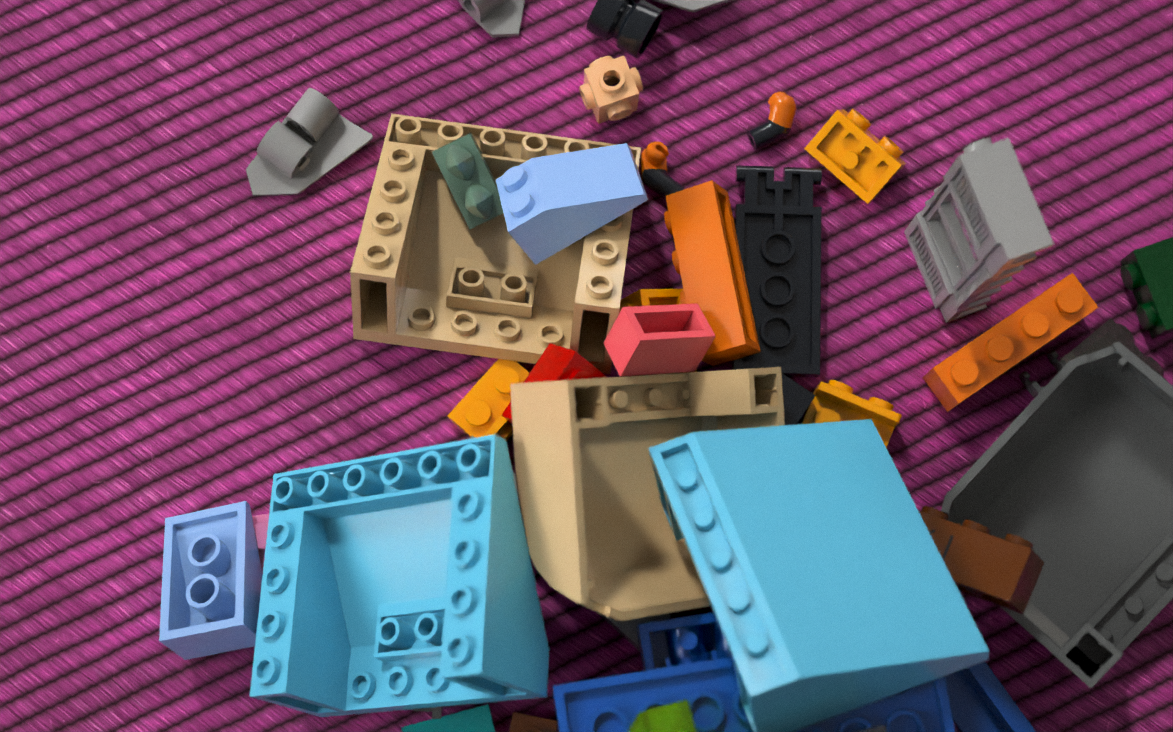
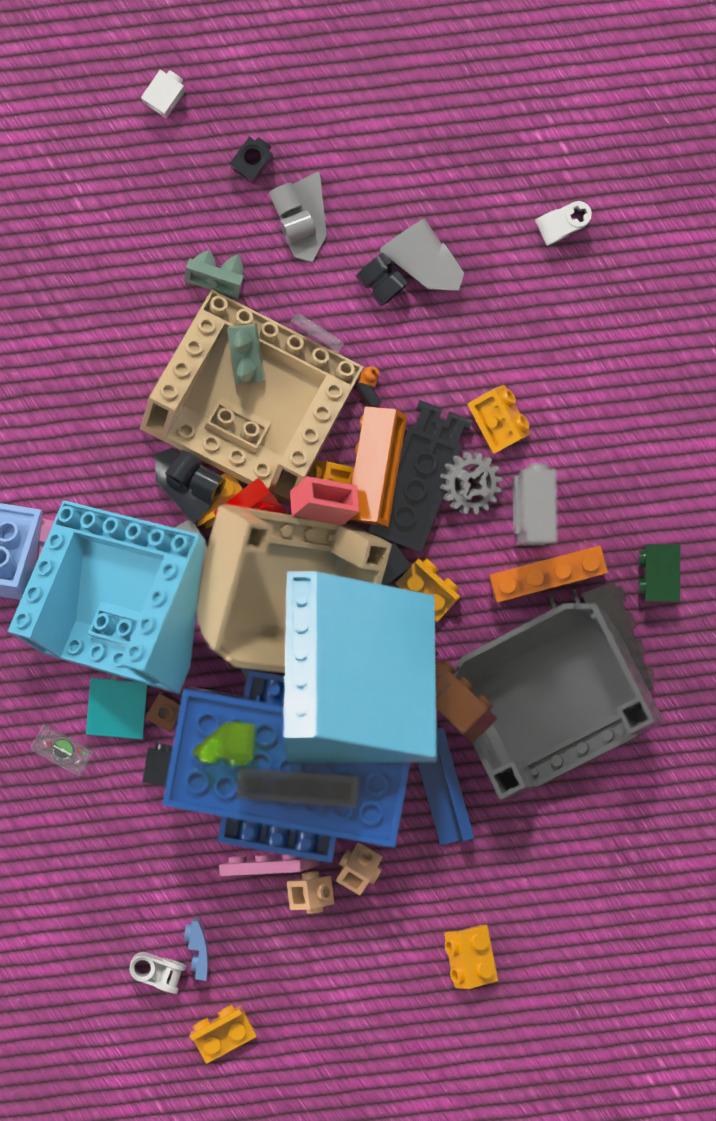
camera: 25 degrees right, 10 degrees up
(303, 147) = (149, 292): light grey panel -> none
(379, 96) = (225, 280): none -> sand green tile
(449, 387) = (187, 482): none -> black panel
(559, 121) = (317, 333): none -> clear tile
(568, 196) = (301, 389): light blue slope -> none
(606, 100) = (353, 333): light nougat brick -> none
(779, 121) = (458, 379): arm -> none
(852, 253) = (463, 491): none -> light grey gear

